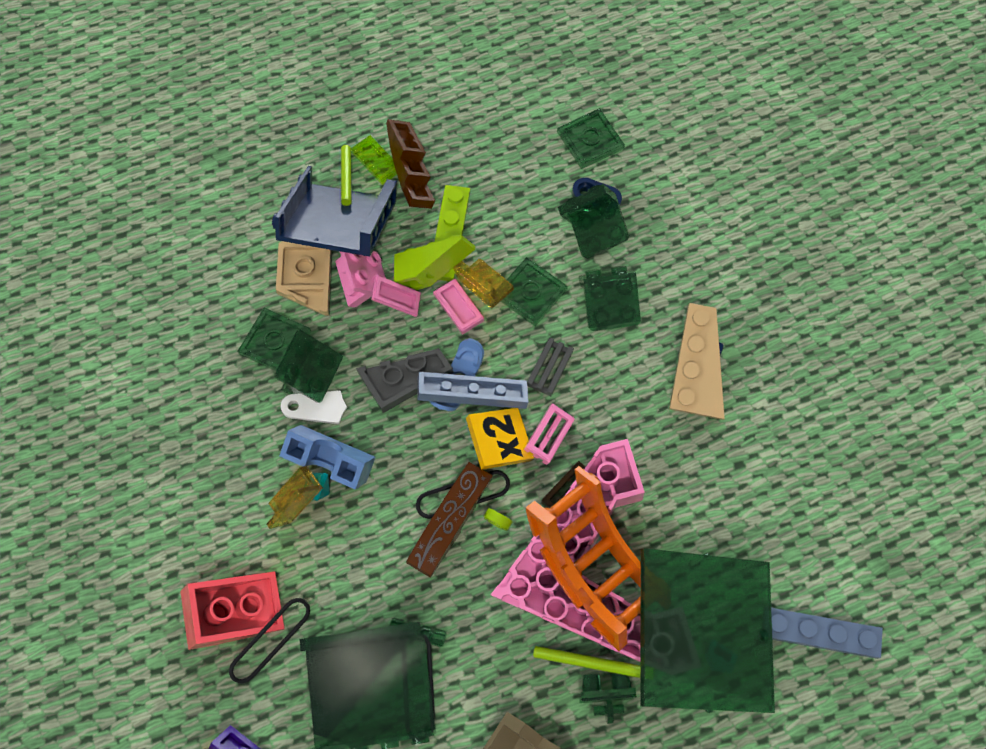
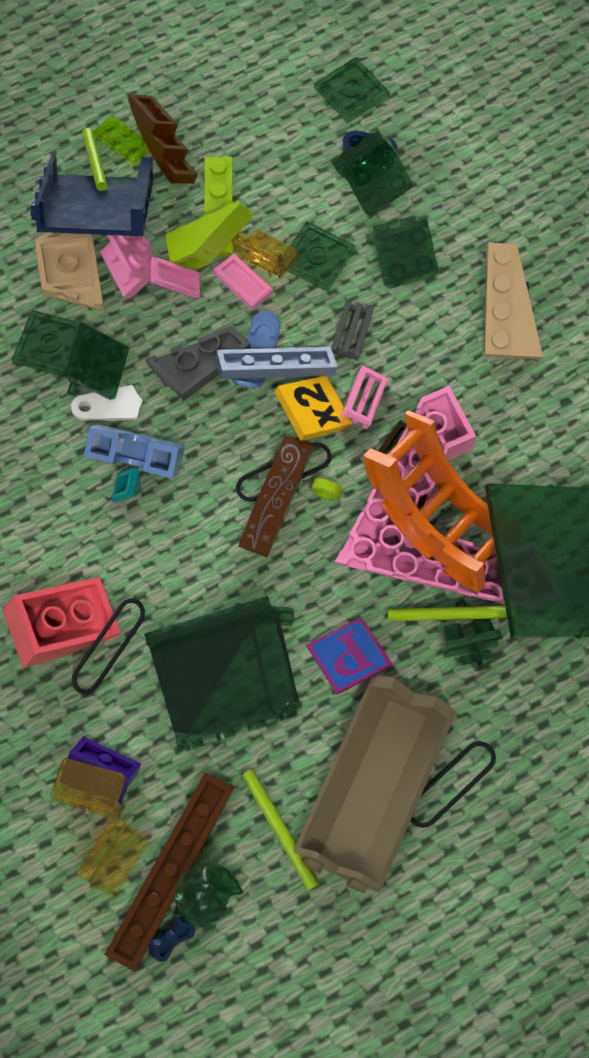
camera: 15 degrees left, 0 degrees up
(293, 497) = (106, 496): clear yellow panel -> none
(488, 688) = (349, 655): none -> piece

